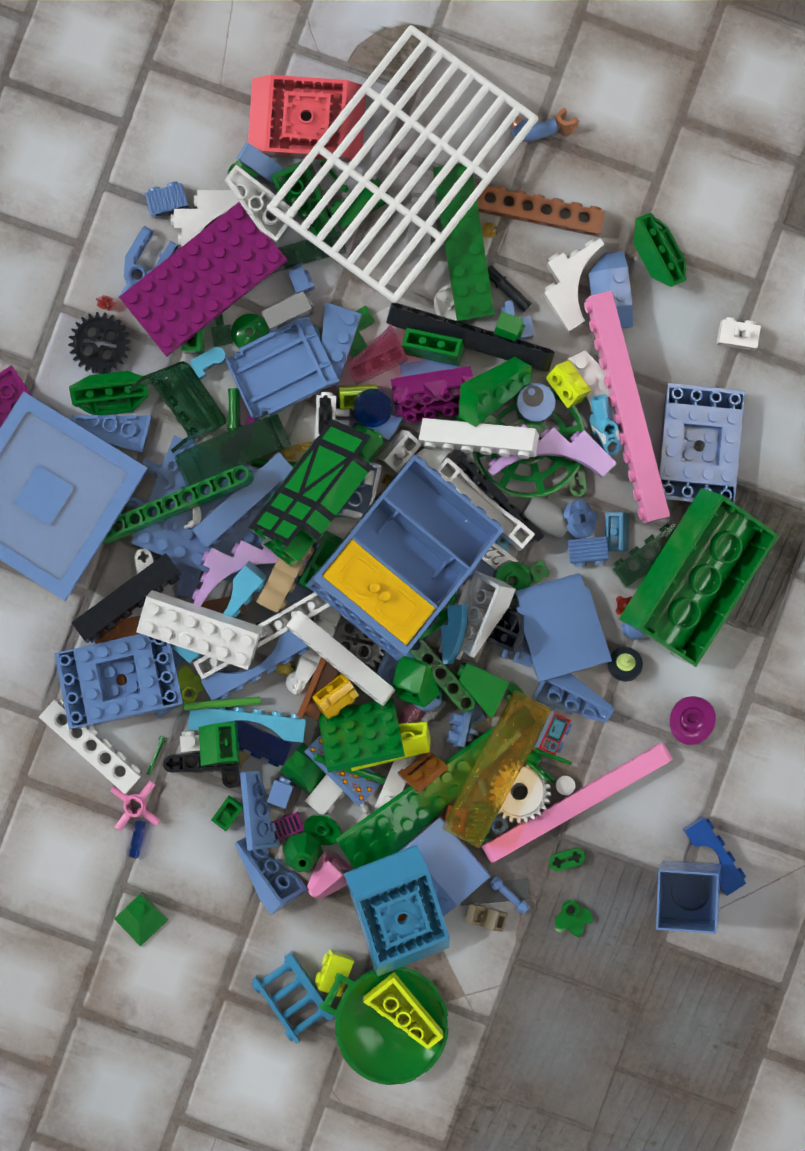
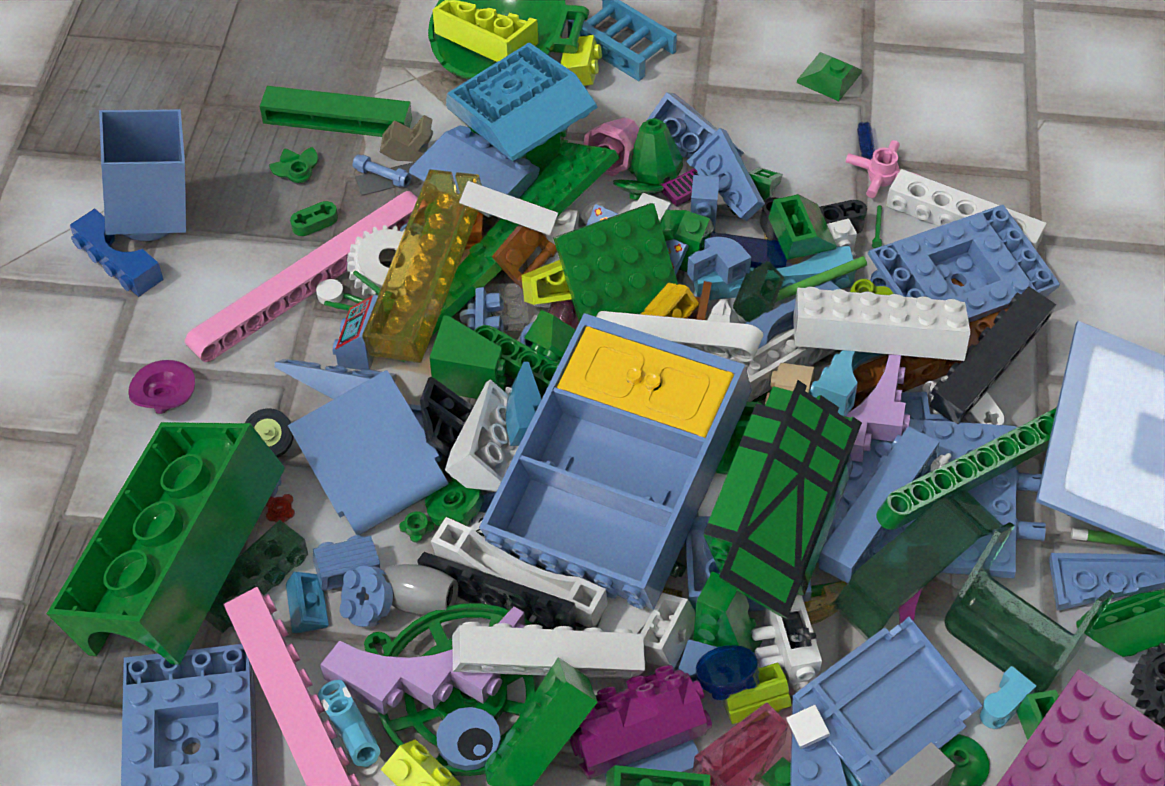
camera: 165 degrees right, 35 degrees down
(222, 333) = (999, 746): clear green plate -> none
(234, 409) = (936, 630): green pin -> none
(267, 694) = (758, 292): none -> clear green brick
(281, 731) = (720, 255): none -> medium blue brick
(336, 359) = (808, 726): none -> white tile
(429, 798) = (508, 207): none -> white sticker
(512, 687) = (417, 373): green tile -> none
(534, 963) = (332, 111): none -> green brick

